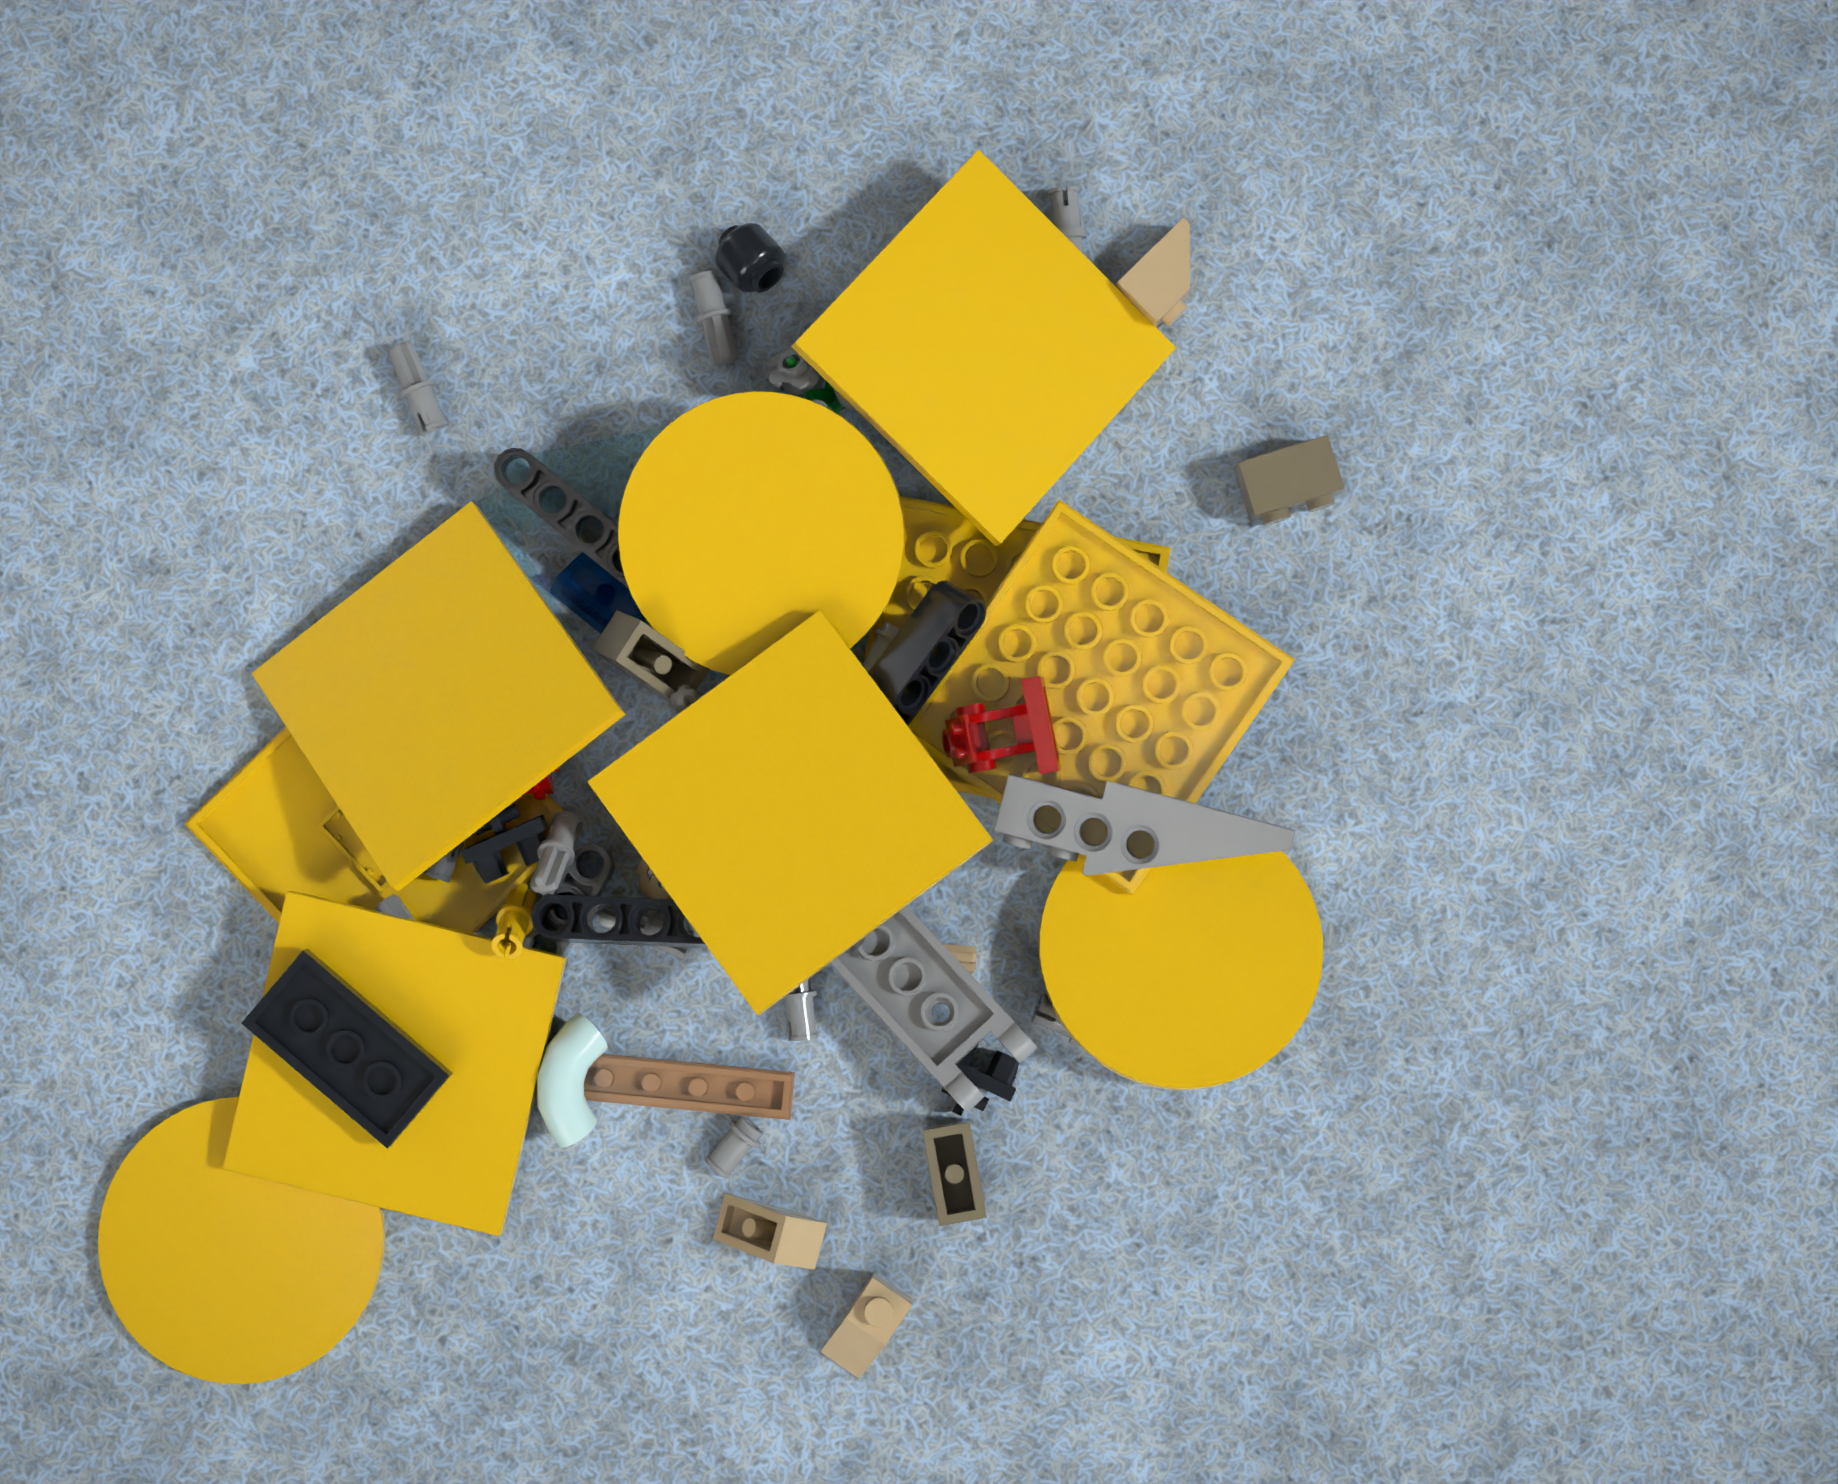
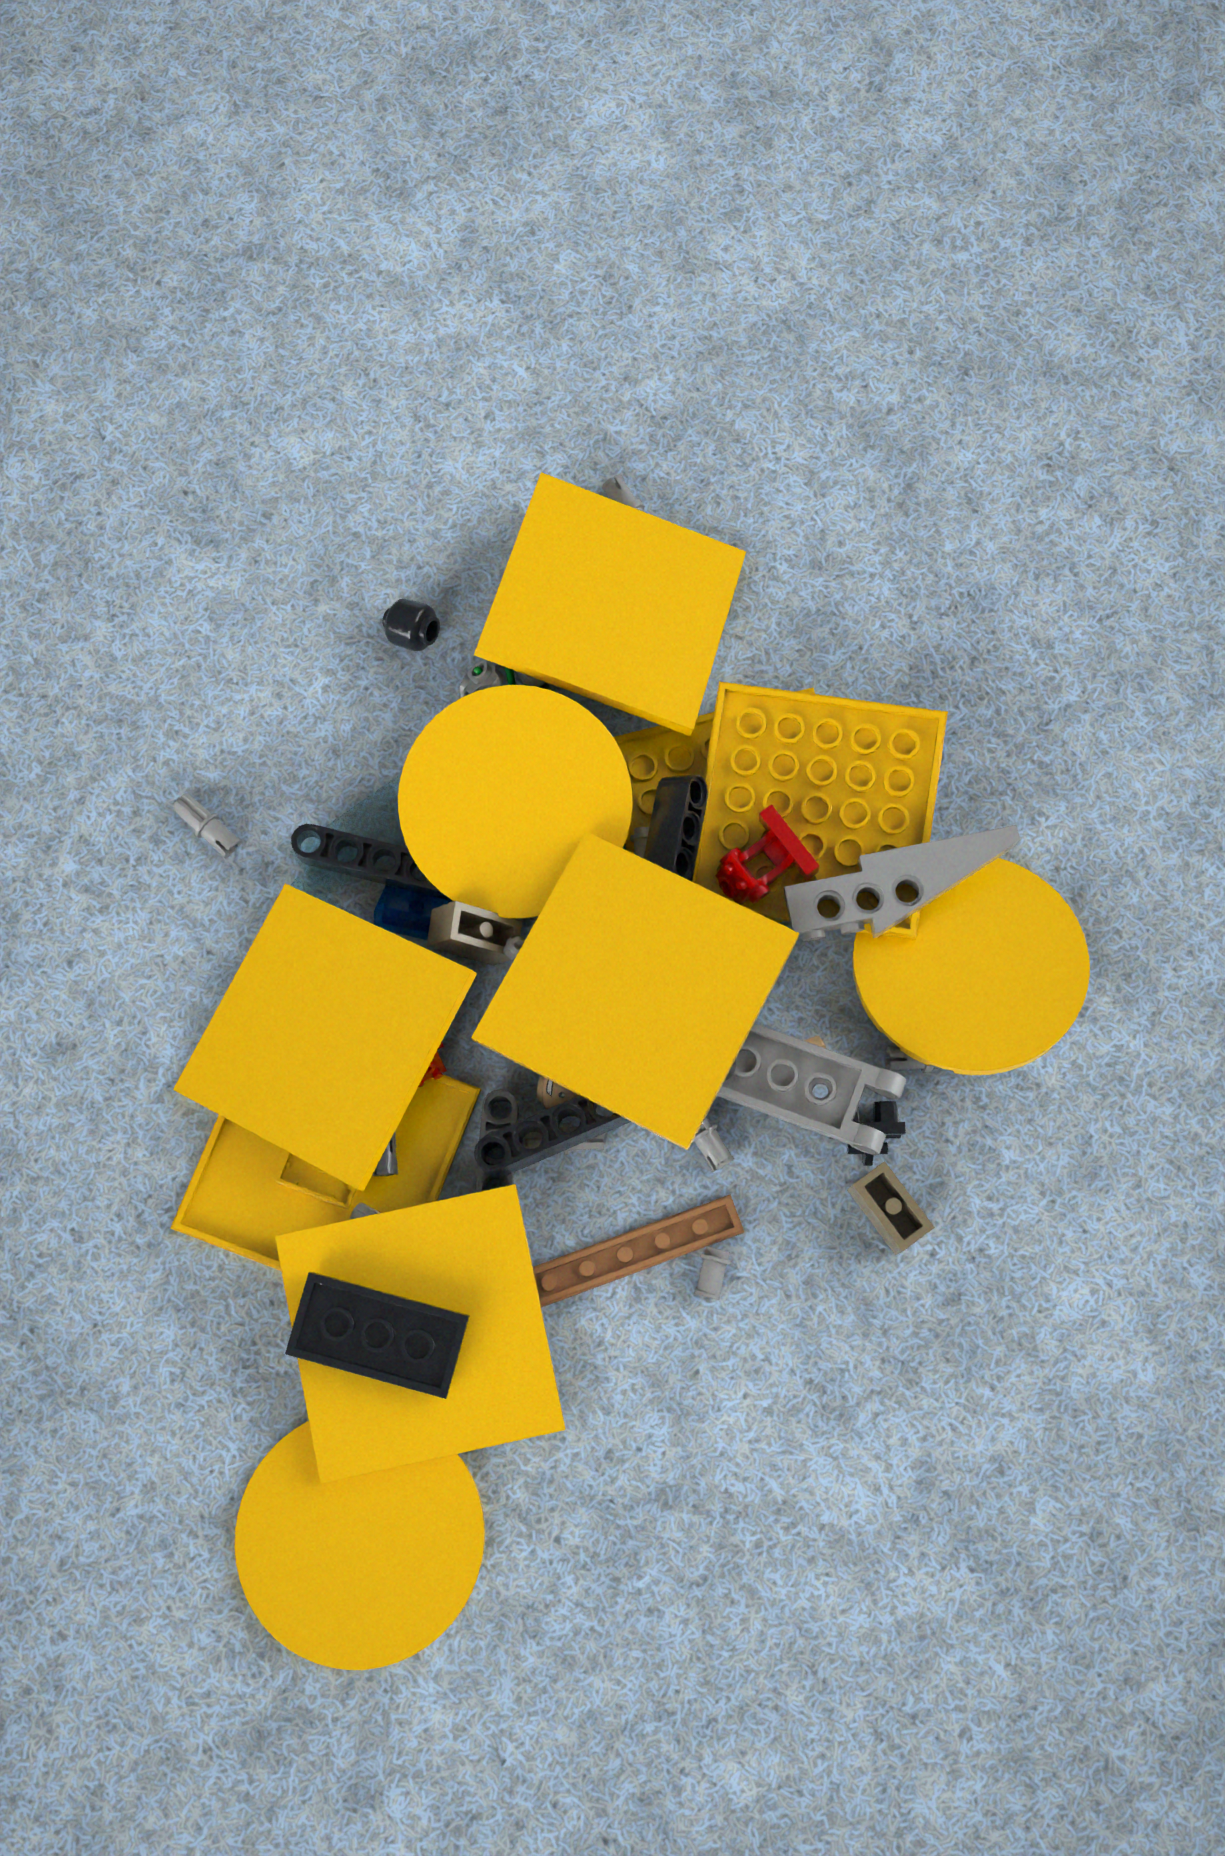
camera: 25 degrees left, 10 degrees down
(487, 854) = (442, 1109): black hips -> none
(514, 922) = (463, 1176): yellow axle -> none
(556, 852) = (470, 1108): light grey axle -> none
(562, 1080) = (557, 1282): light aqua cylinder -> none
(714, 317) = (403, 678): light grey axle -> none
(770, 1232) = (772, 1324): tan slope -> none
(867, 1325) = (883, 1362): tan slope -> none
(1161, 277) = (712, 506): tan slope -> none
(1289, 480) = (873, 602): dark tan brick -> none

